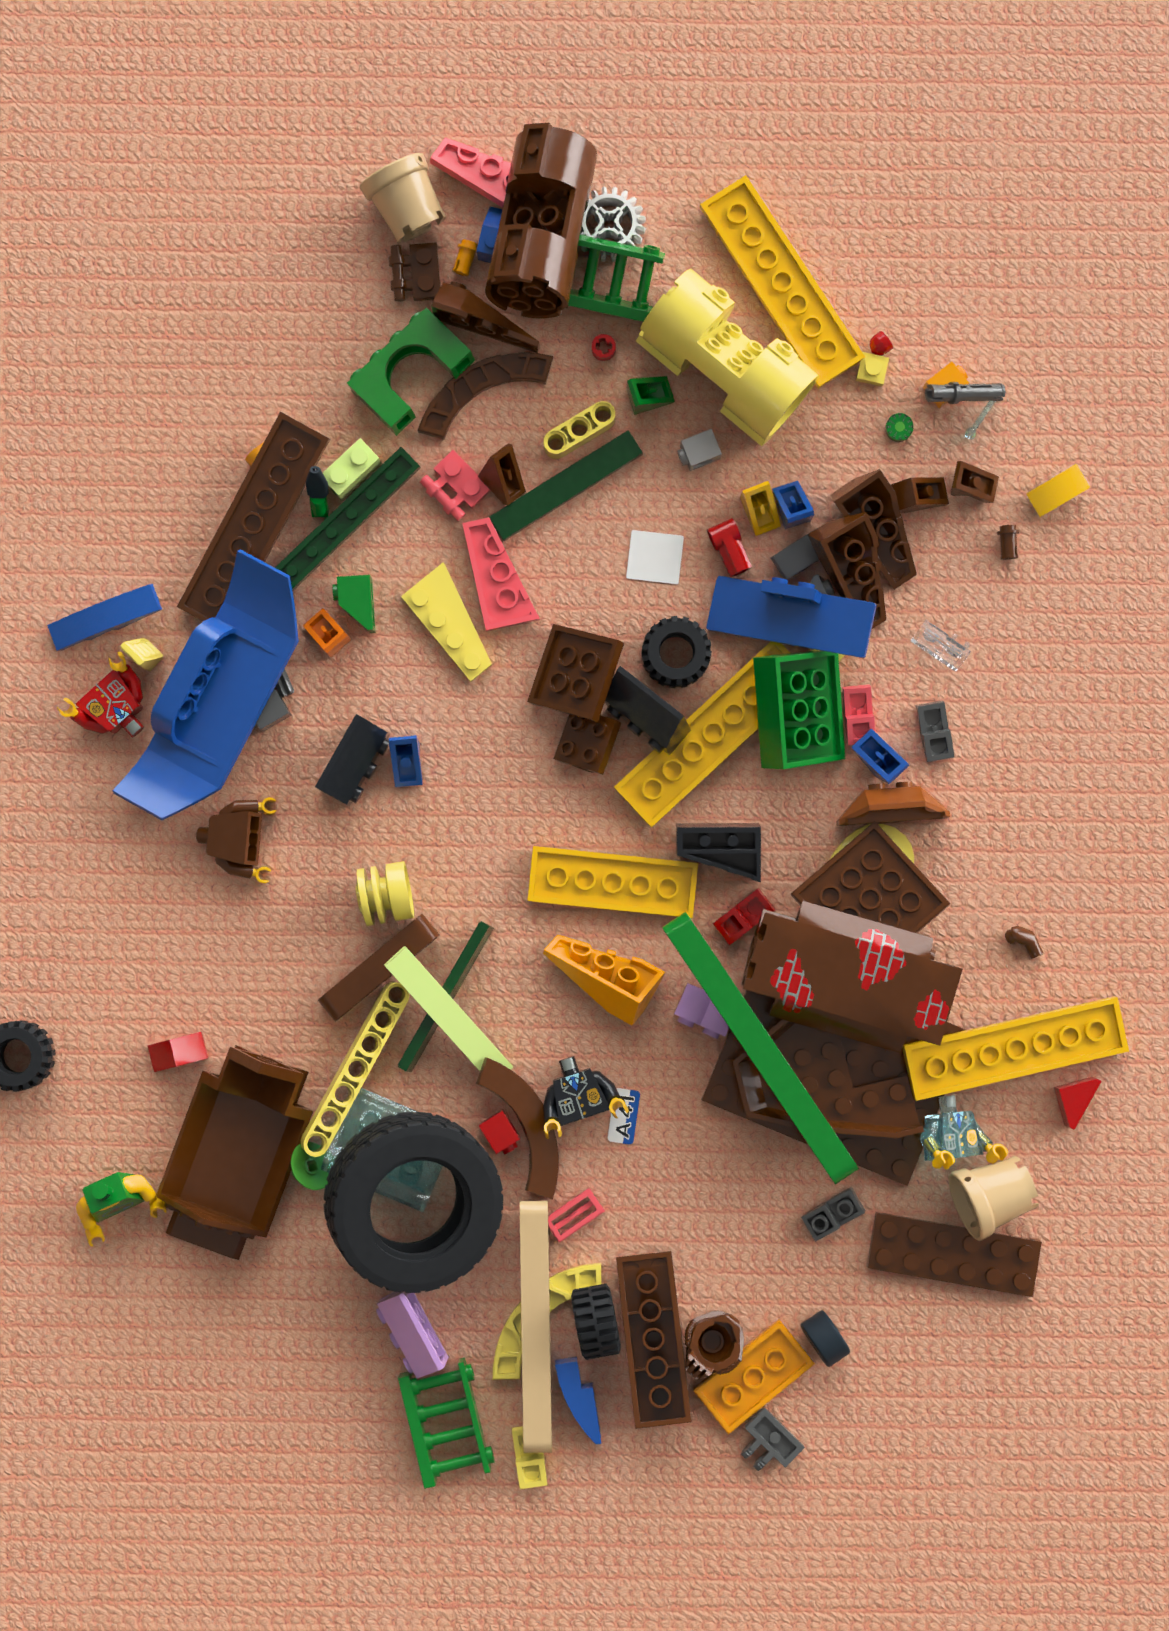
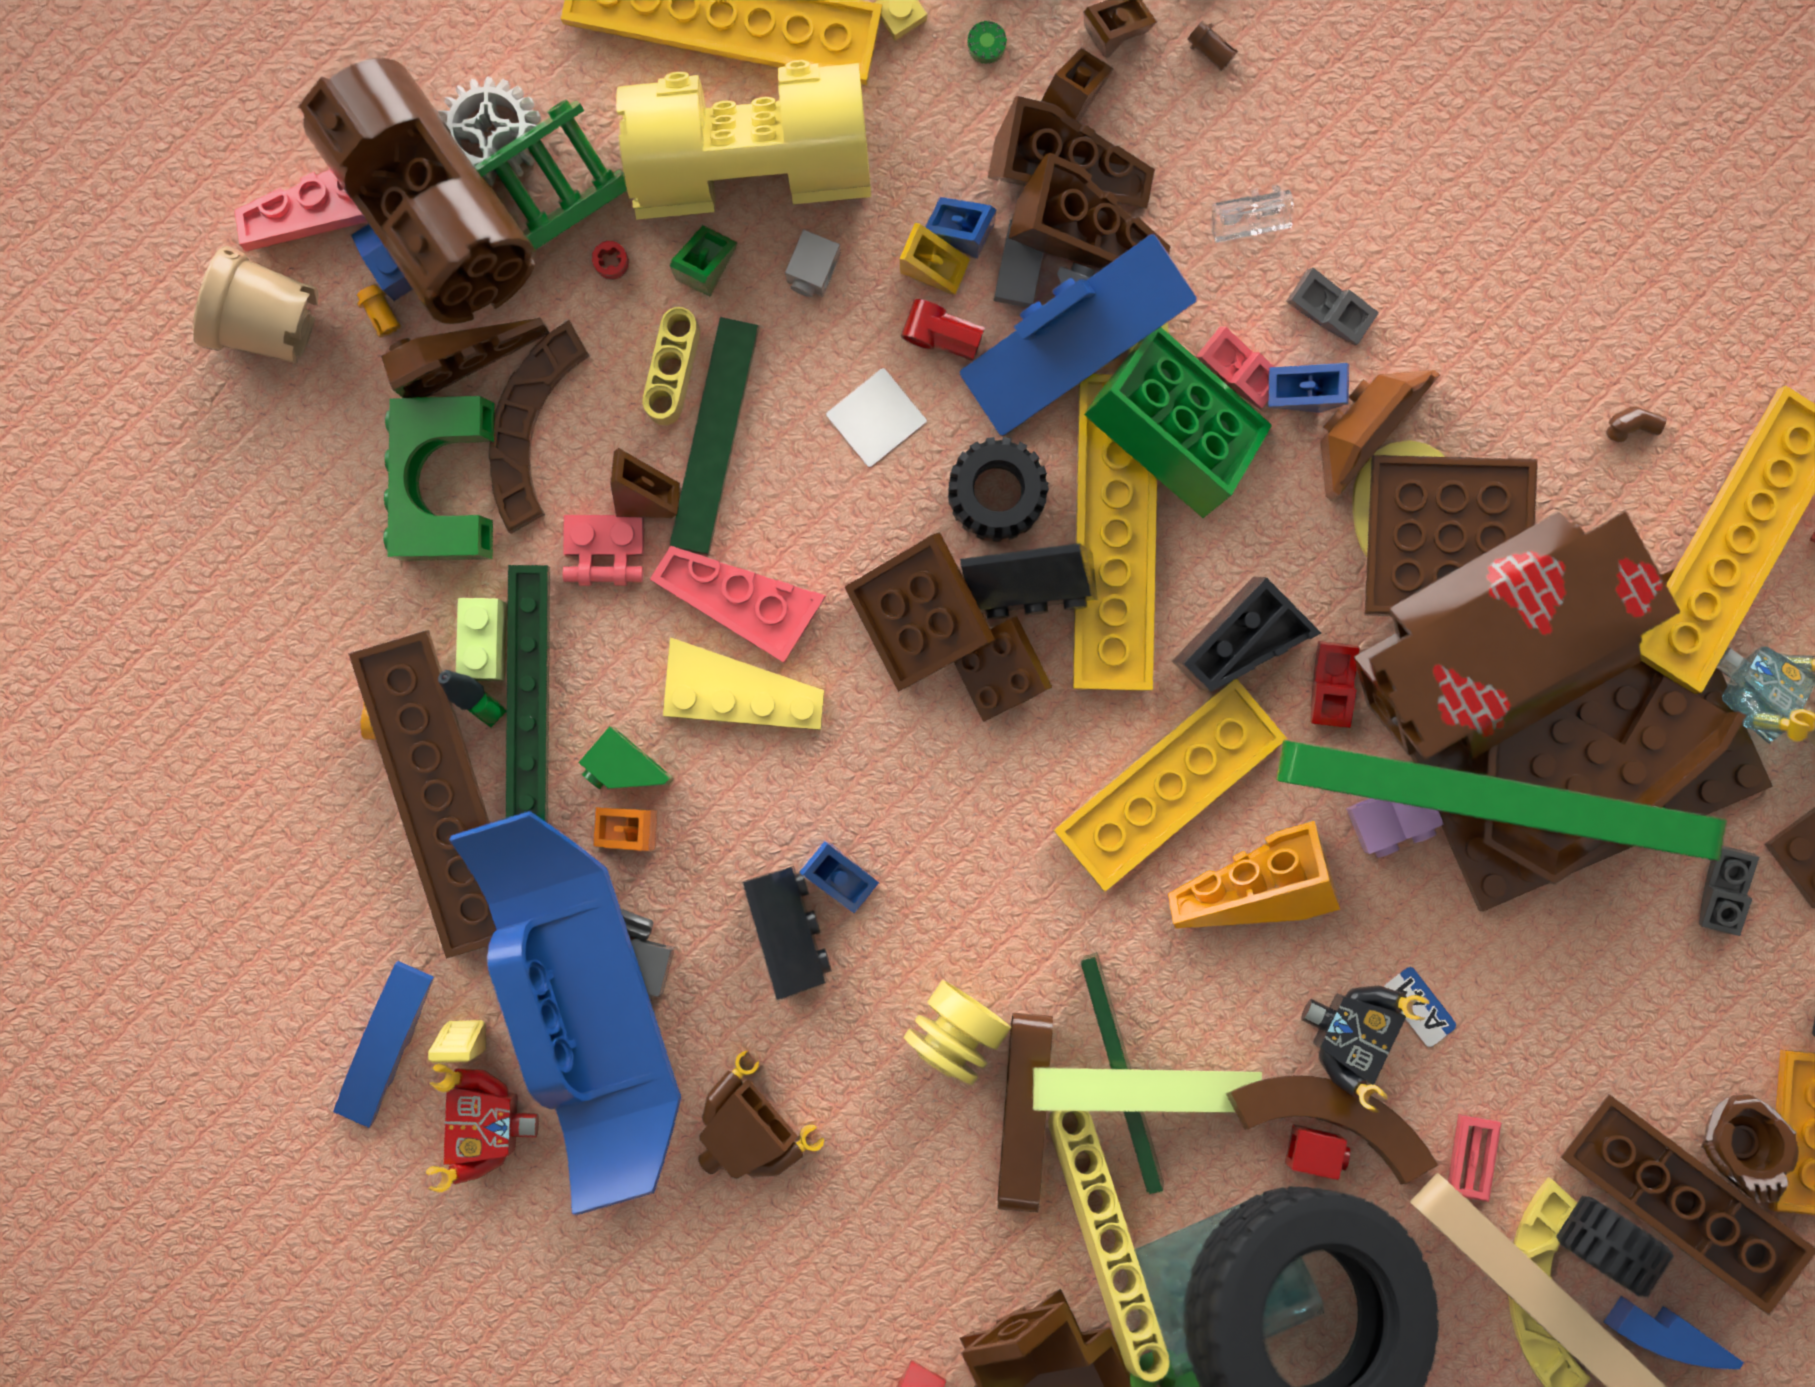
camera: 45 degrees left, 0 degrees up
(424, 271) = (352, 366): reddish brown plate -> none

